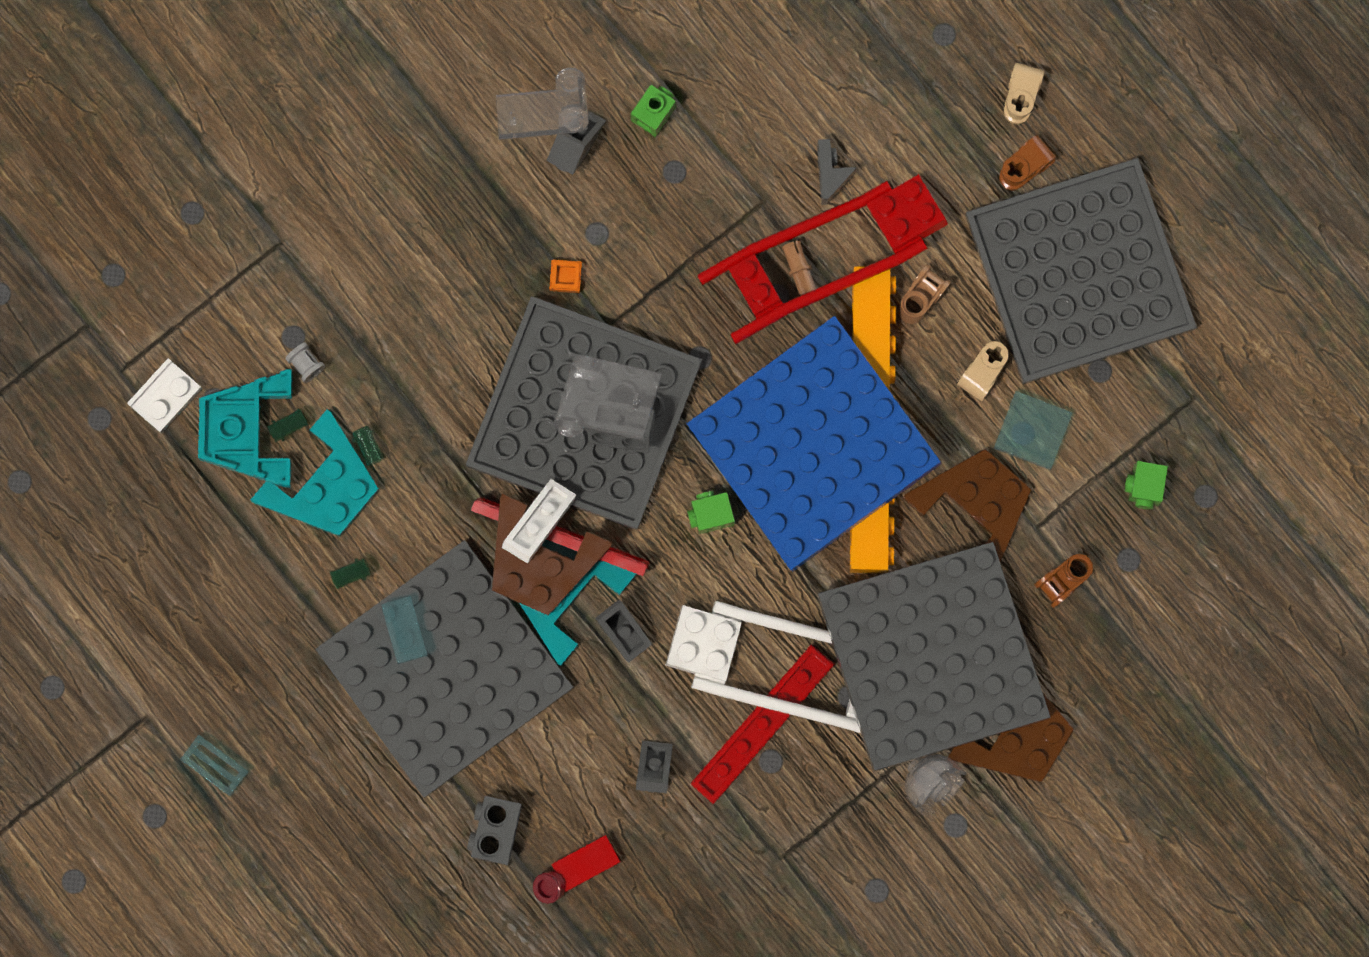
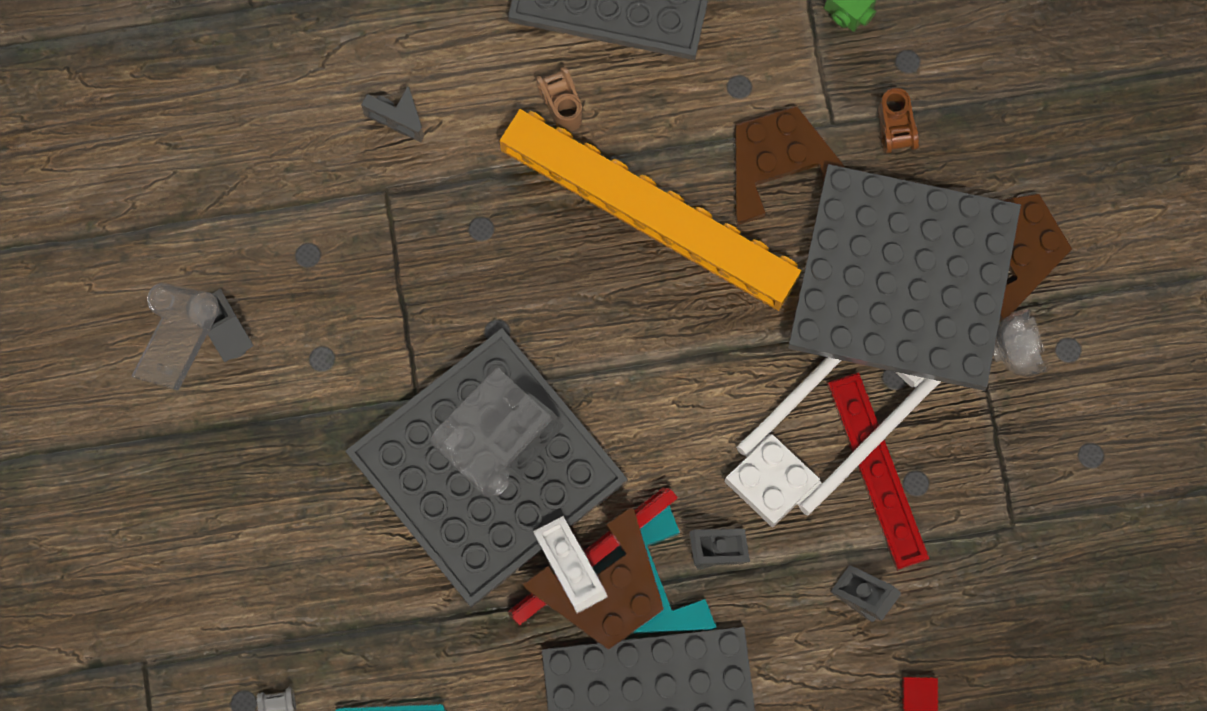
camera: 60 degrees left, 5 degrees down
(368, 445) = (394, 690): clear green pin -> none
(565, 276) = (345, 410): orange tile -> none
(654, 109) = (238, 238): bright green brick -> none
(710, 512) = (651, 402): bright green brick -> none
(799, 267) = (471, 193): medium nougat axle -> none
(813, 443) = (643, 270): blue plate -> none
(902, 215) = (476, 71): red plate -> none
(982, 374) = (665, 88): tan piece -> none
(1033, 430) = (742, 75): clear light blue tile -> none

